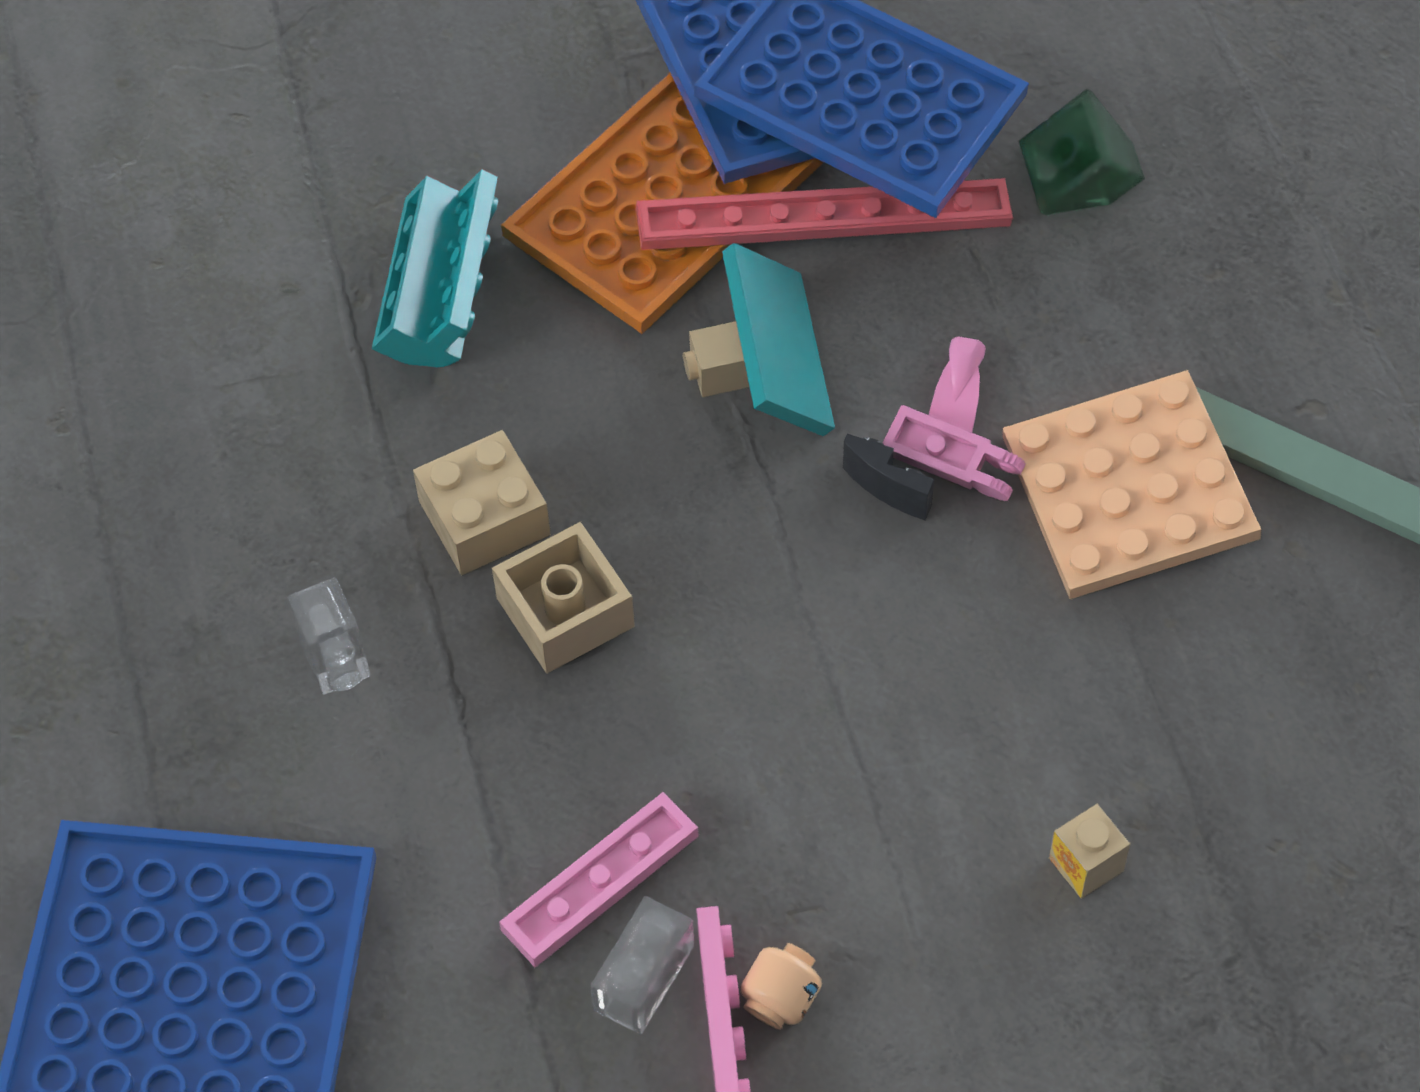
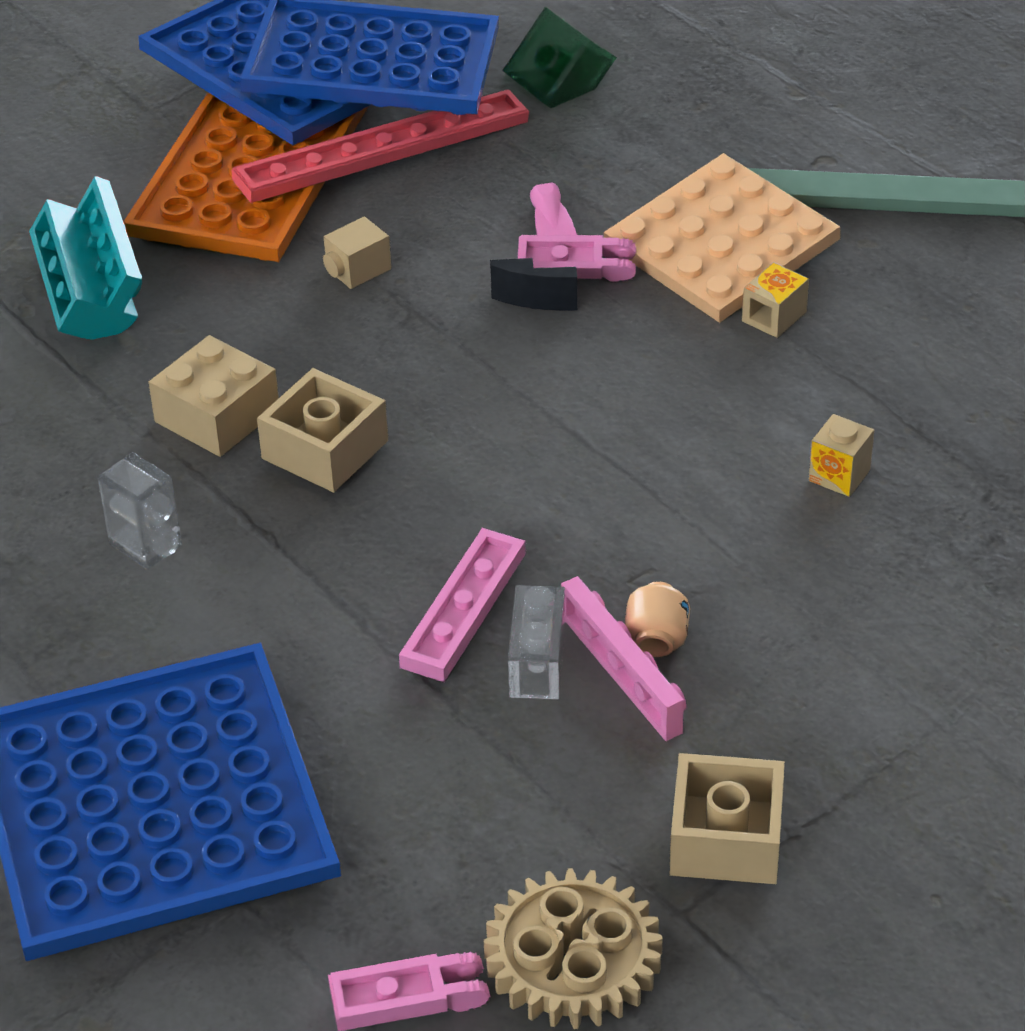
camera: 25 degrees left, 15 degrees down
(778, 340) = (397, 225): teal tile -> none
(1138, 600) = (775, 299): none -> tan brick

